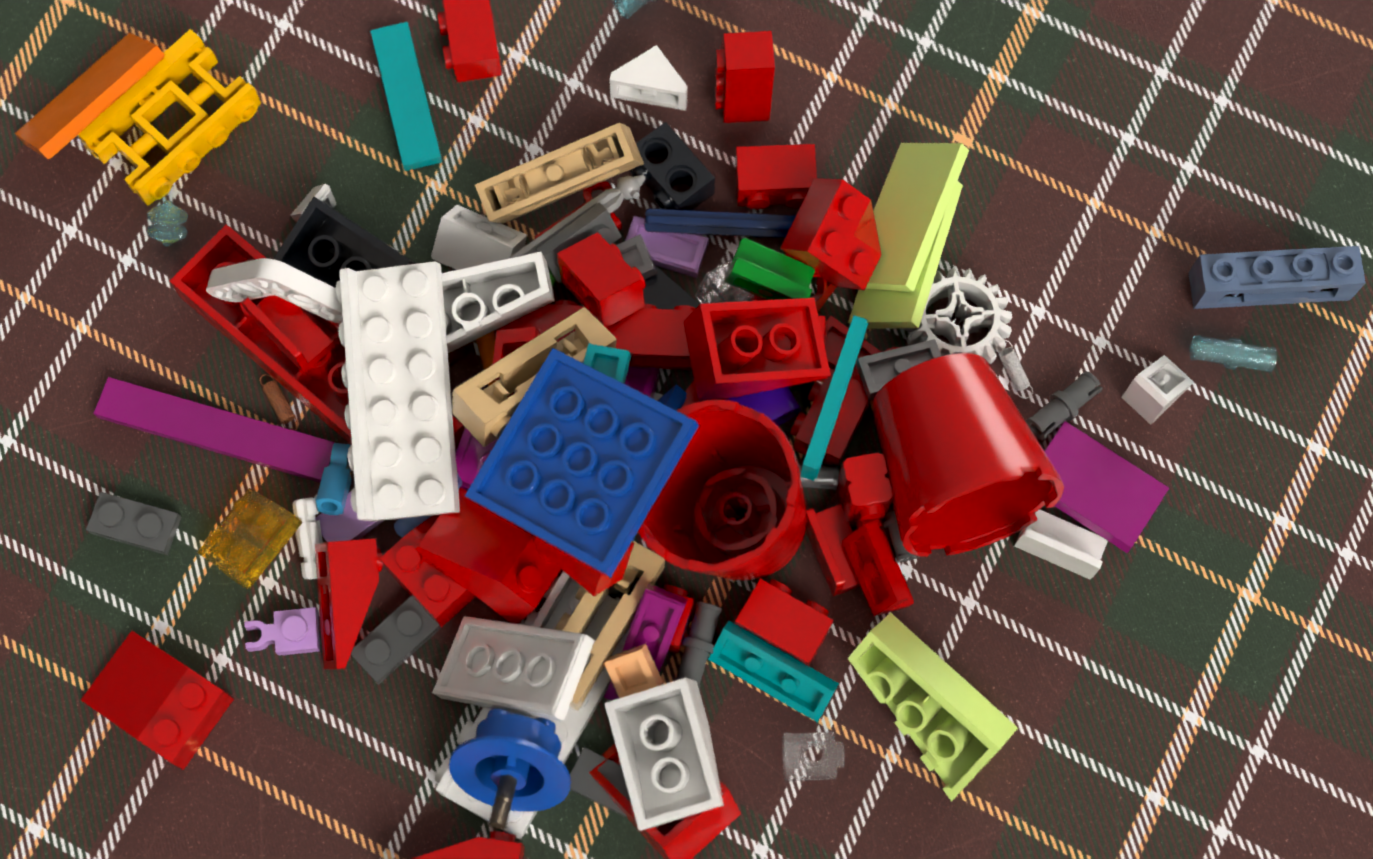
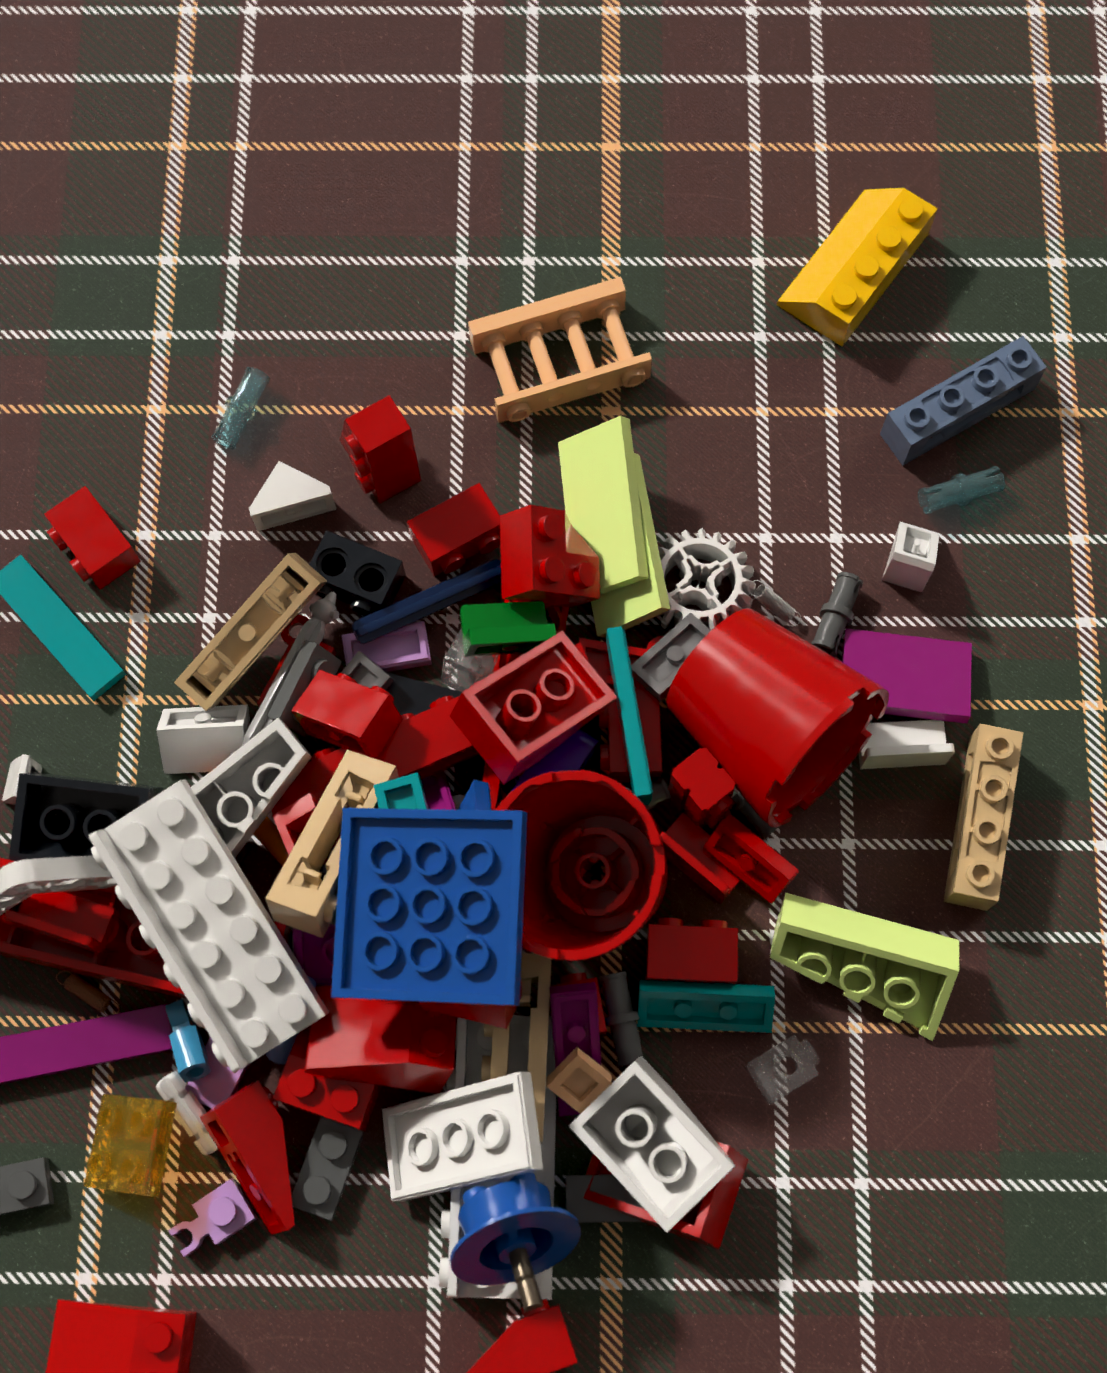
camera: 25 degrees left, 0 degrees up
(952, 32) = (565, 313): none -> light nougat fence
(1097, 638) = (983, 817): none -> tan brick
(1251, 114) = (858, 261): none -> yellow slope

